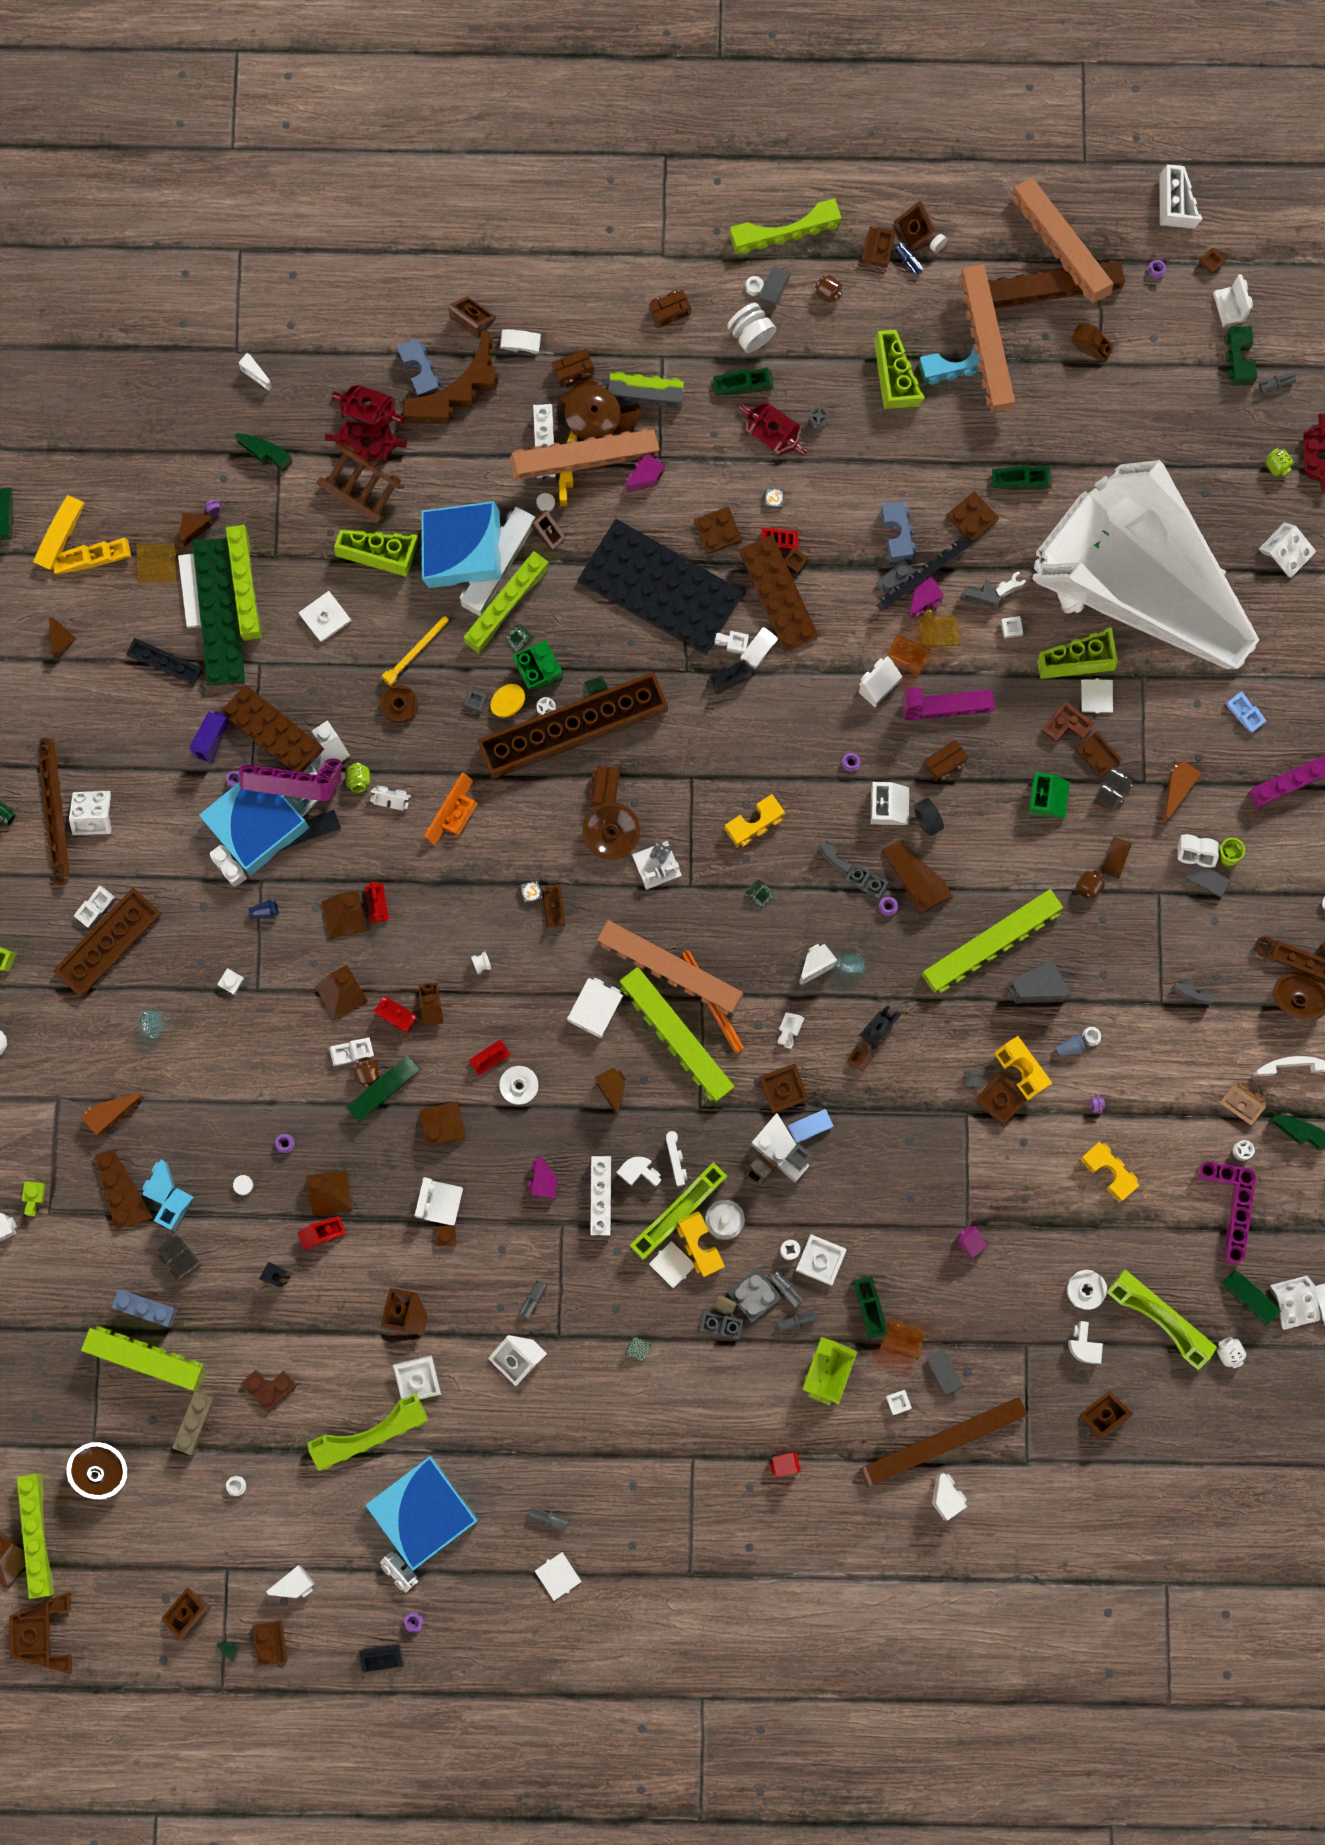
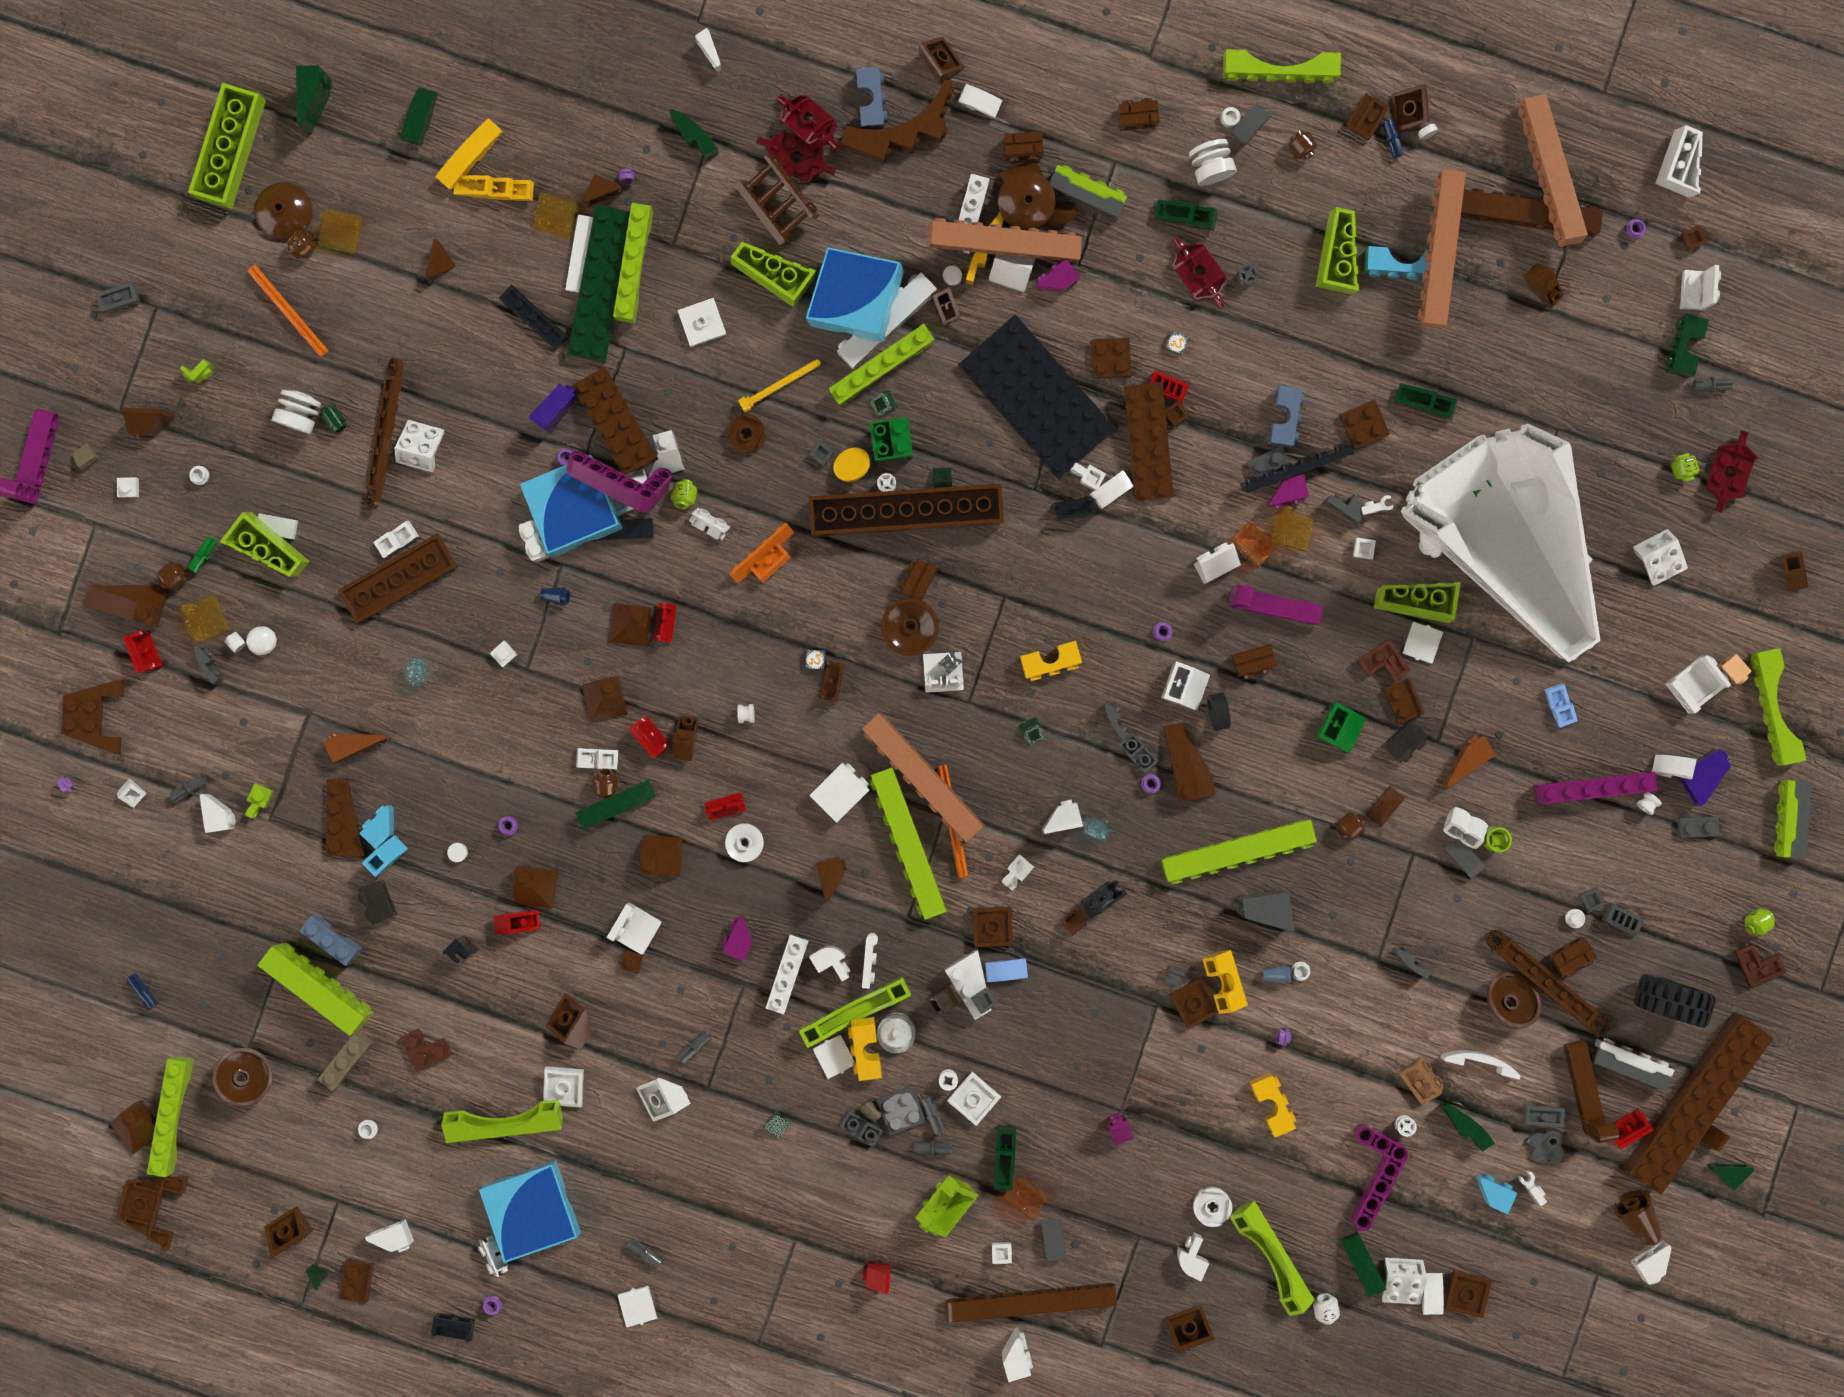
camera: 15 degrees right, 10 degrees up
(599, 482) = (1011, 271): none -> white slope

